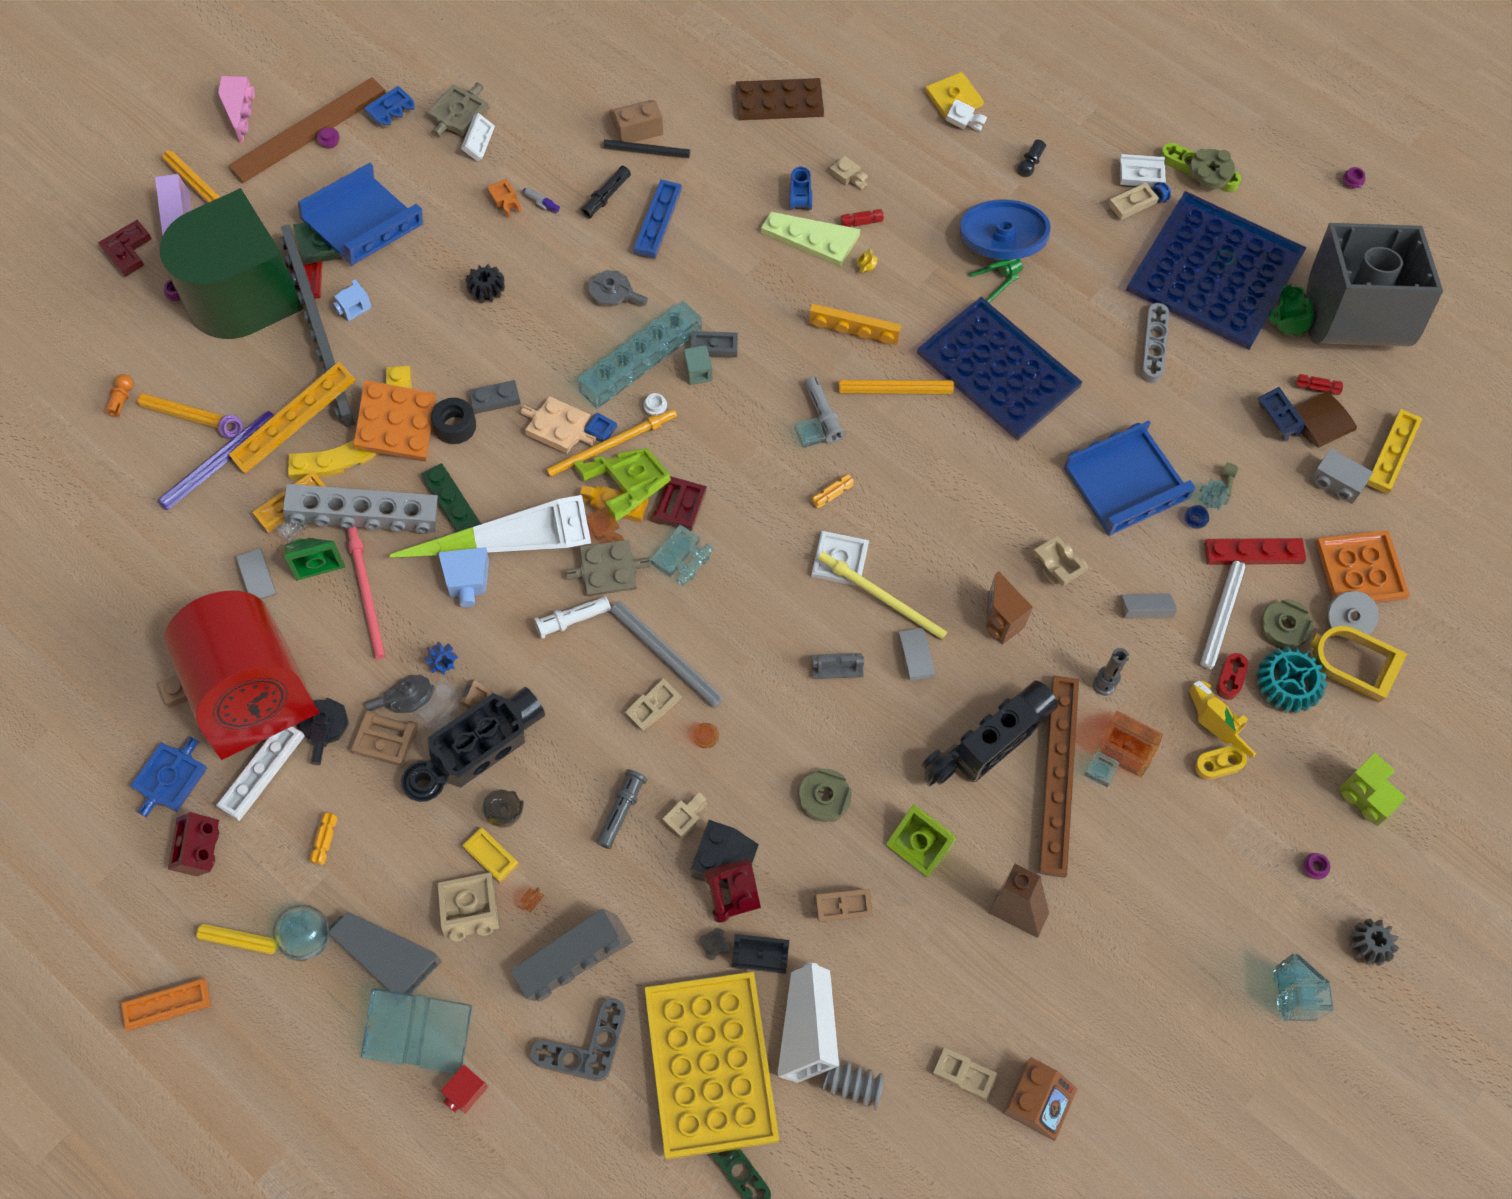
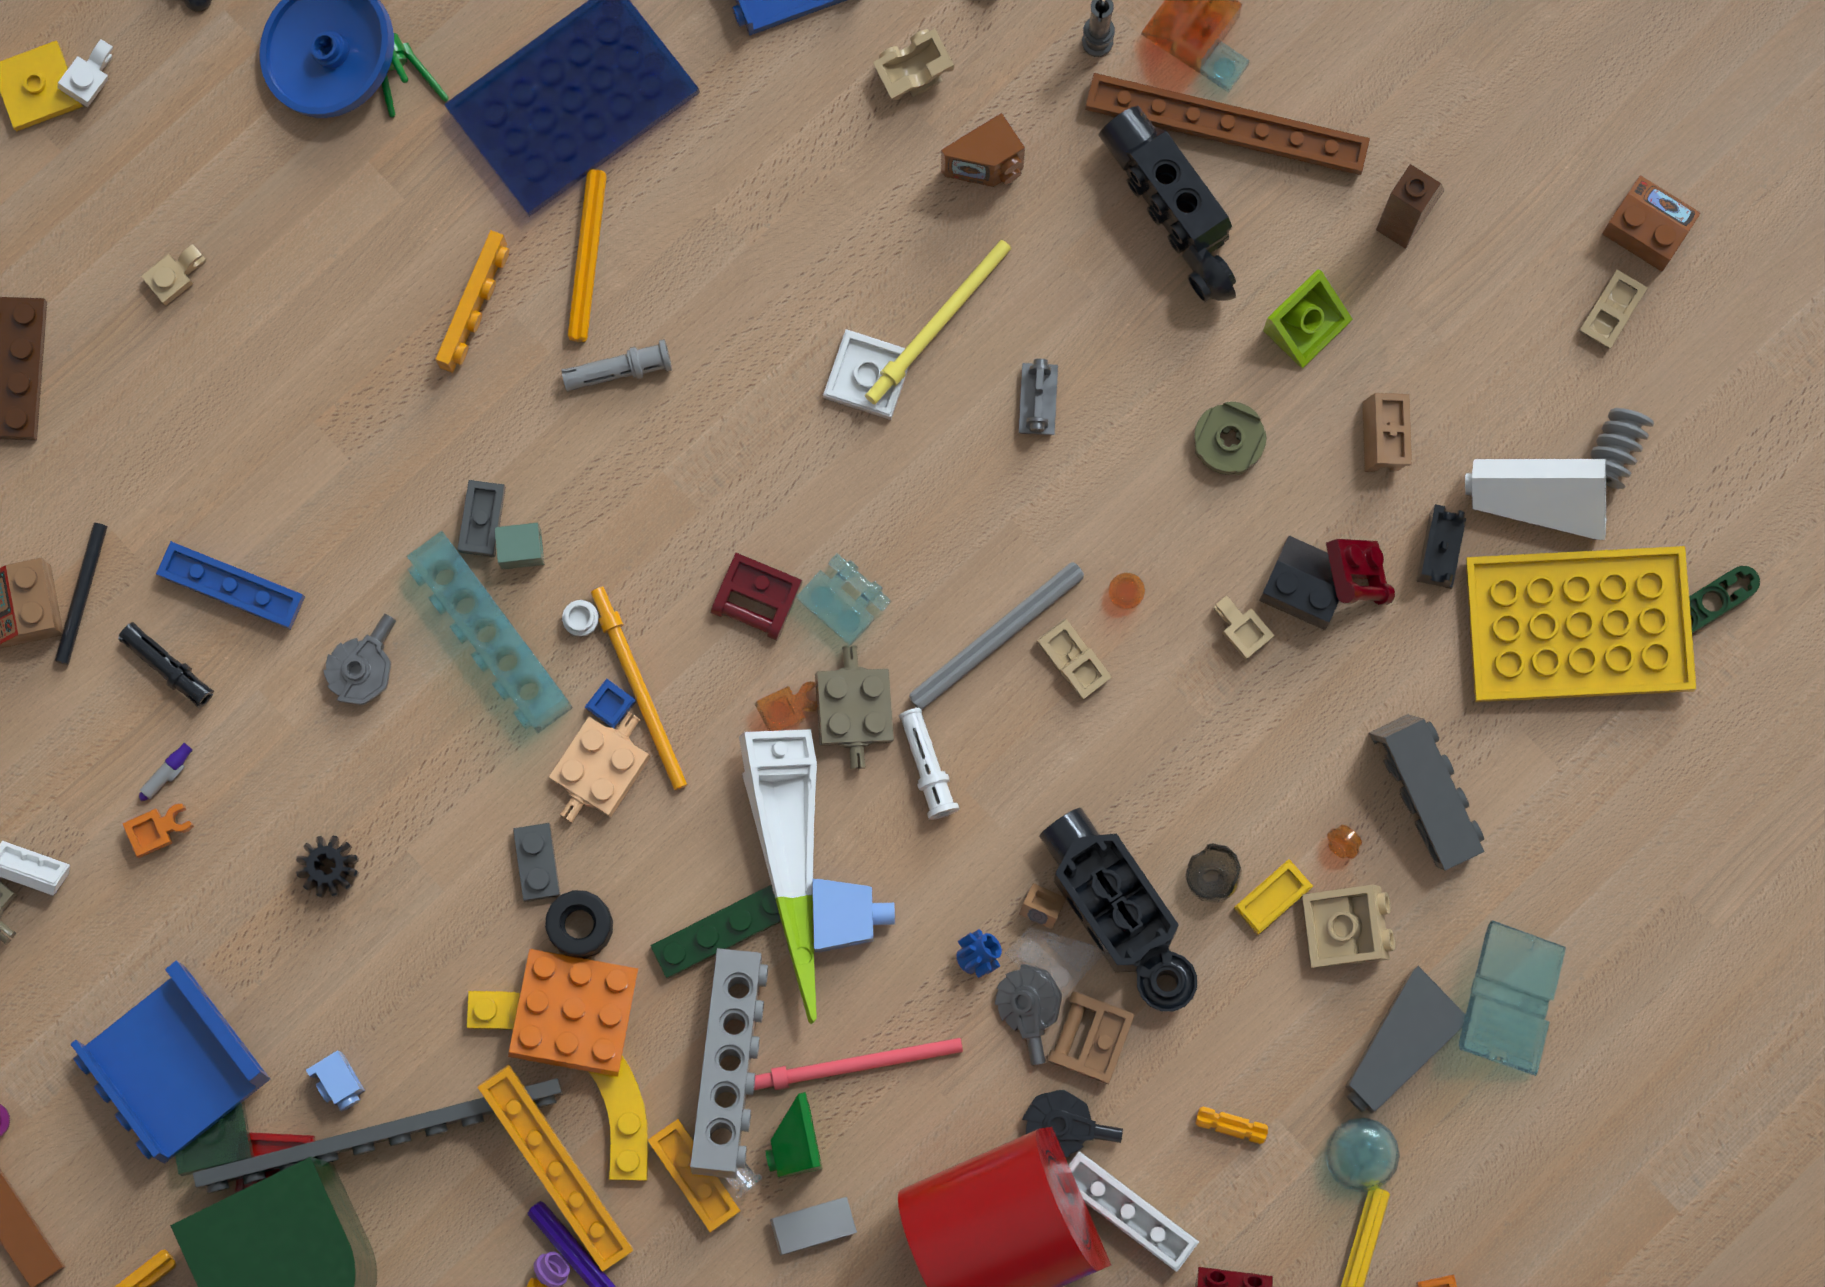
camera: 80 degrees left, 15 degrees up
(463, 1090) = (1590, 941): red brick -> none
(585, 1057) = (1557, 783): dark grey beam -> none
(598, 496) = (743, 688): light orange hinge -> none
(625, 797) = (1264, 738): dark grey pin -> none
(634, 471) = (704, 653): lime wing -> none
(714, 936) = (1427, 597): clear smoke plate -> none
(800, 189) = (211, 356): blue piece -> none
(810, 432) = (656, 391): clear light blue plate -> none
(814, 237) = (293, 344): yellowish green wing -> none
(832, 491) = (757, 371): light orange axle -> none
(862, 218) = (266, 265): red axle -> none
(867, 261) = (356, 267): yellow plate -> none
(916, 654) = (1032, 287): light grey slope -> none

